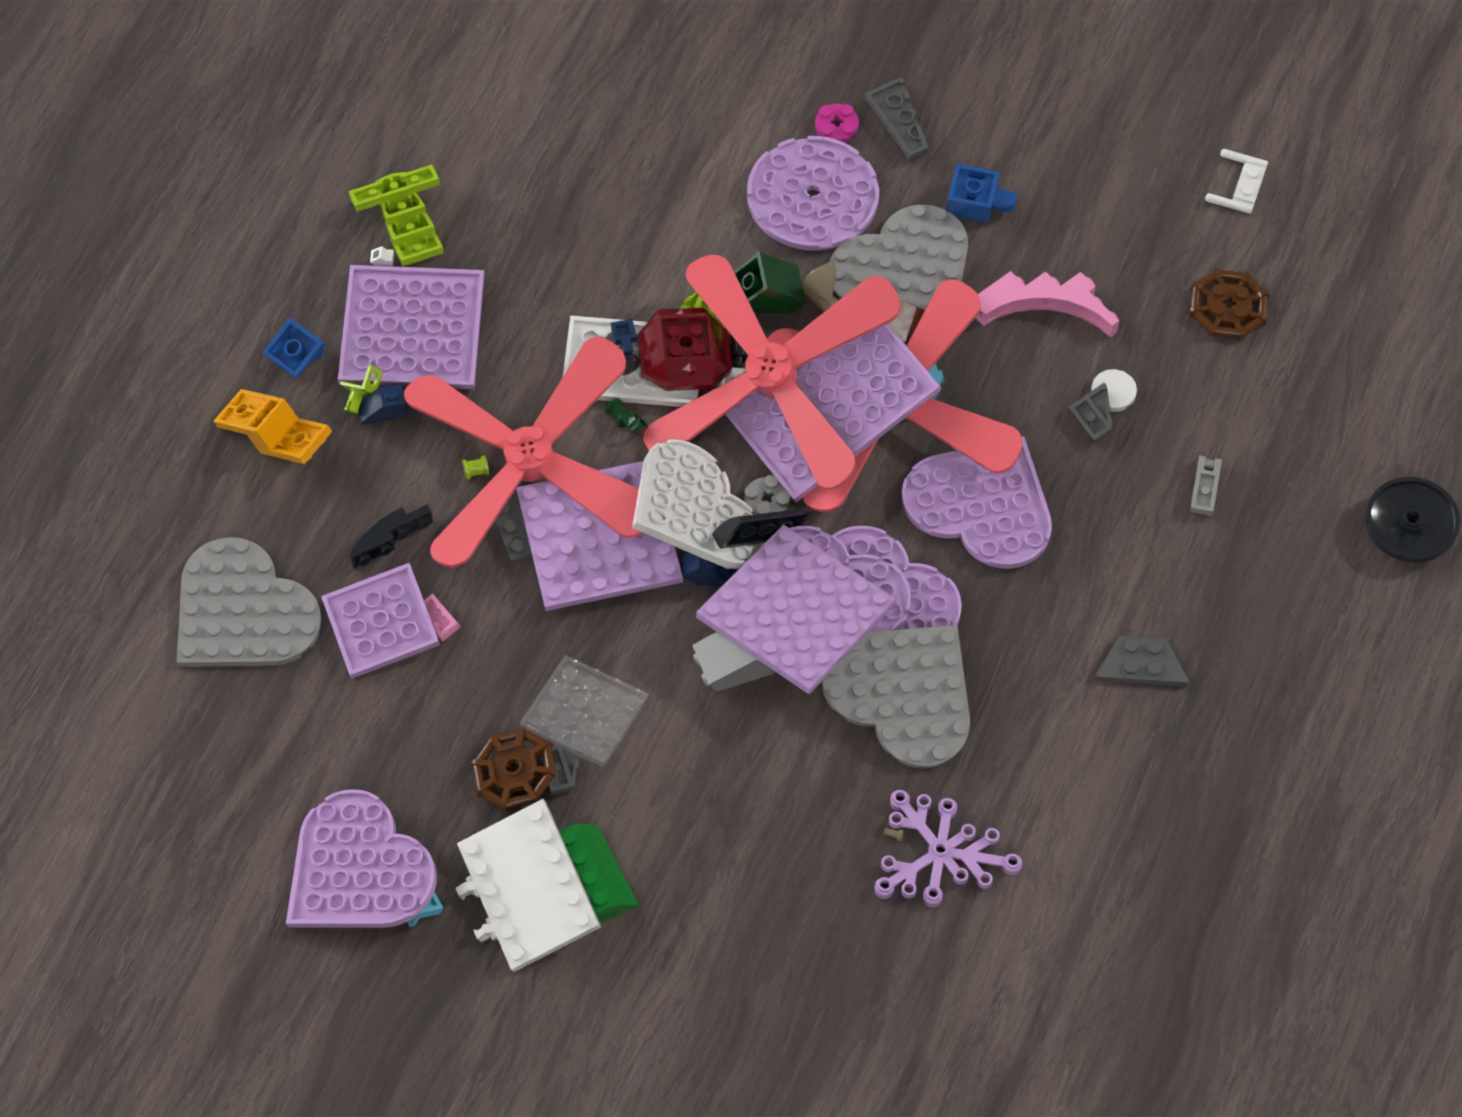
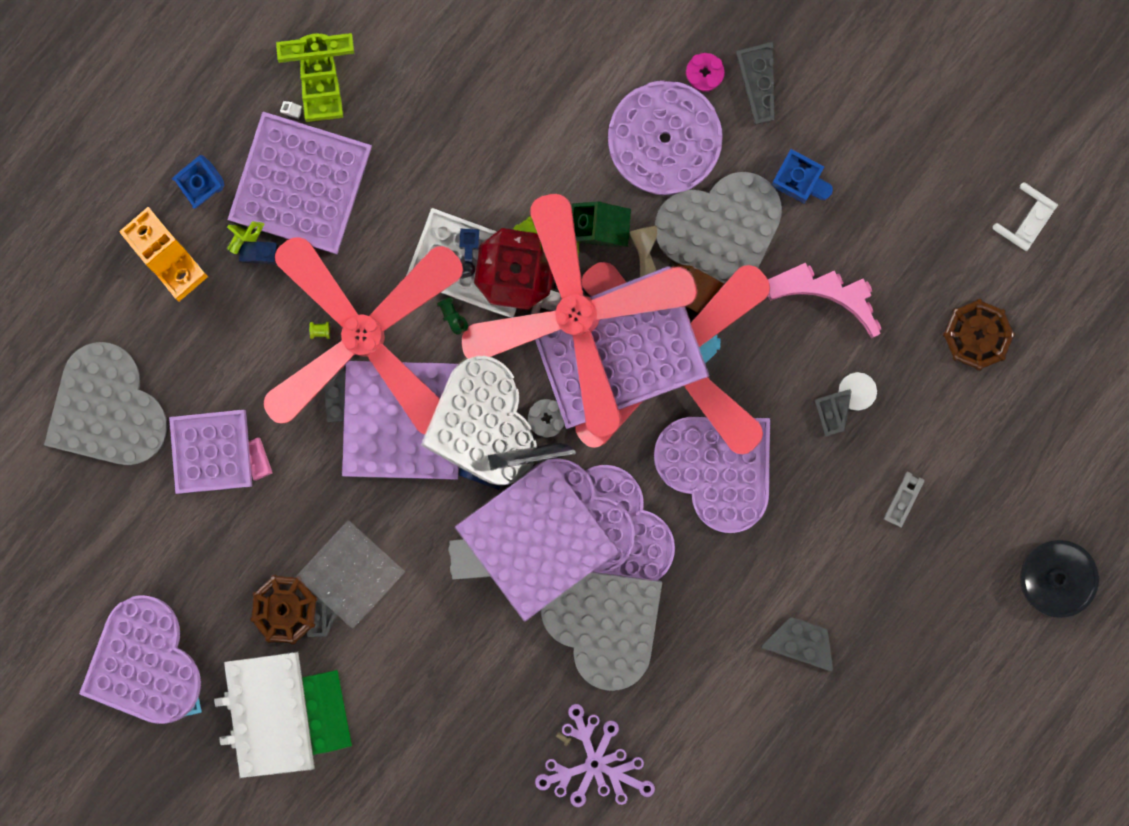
camera: 15 degrees right, 25 degrees up
(381, 536) = (228, 376): black slope -> none

